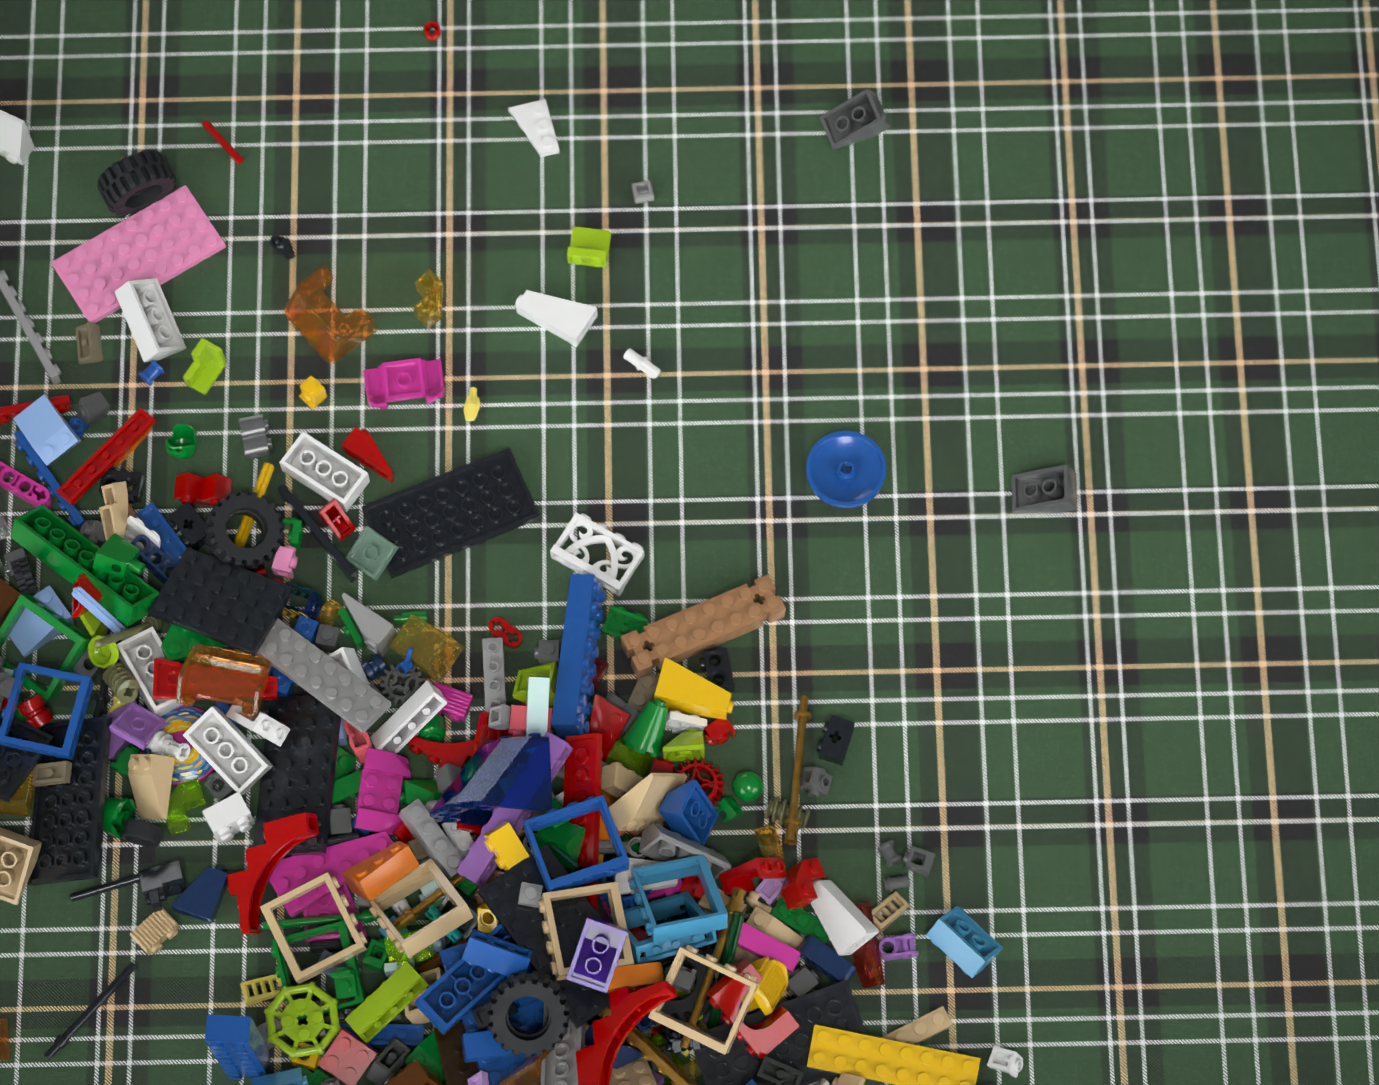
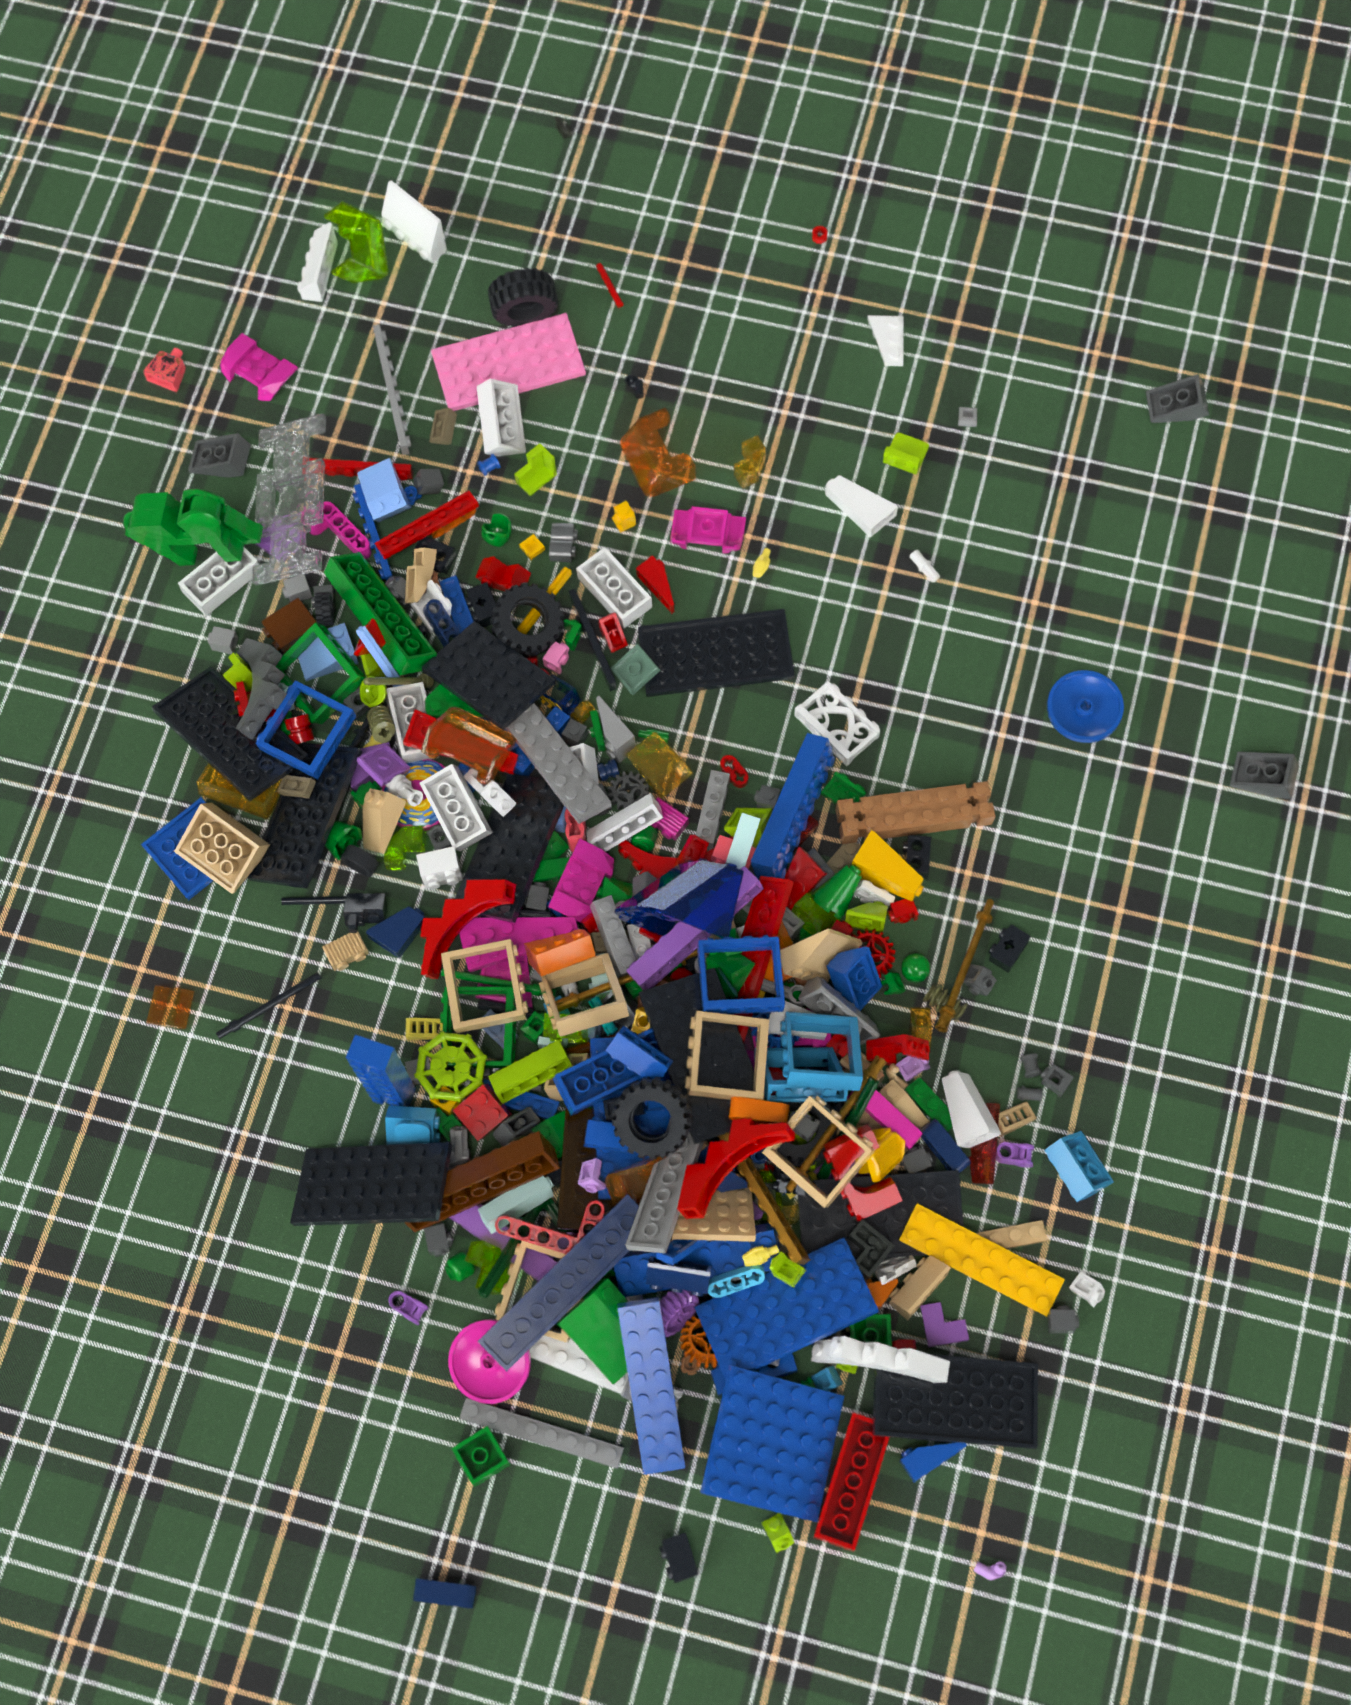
camera: 20 degrees right, 0 degrees up
(118, 557) = (409, 613): green torso -> none
(224, 450) = (532, 547): none -> yellow plate
(345, 983) = (498, 1043): green bracket -> none
(406, 664) = (637, 775): blue hand -> none
(499, 717) = (706, 843): light grey brick -> none
(505, 845) = (676, 959): yellow brick -> none
(530, 894) = (685, 1009): light grey plate -> none
(597, 954) = (731, 1080): slope -> none
(618, 780) = (797, 927): tan brick -> none
(798, 889) = (937, 1072): red brick -> none

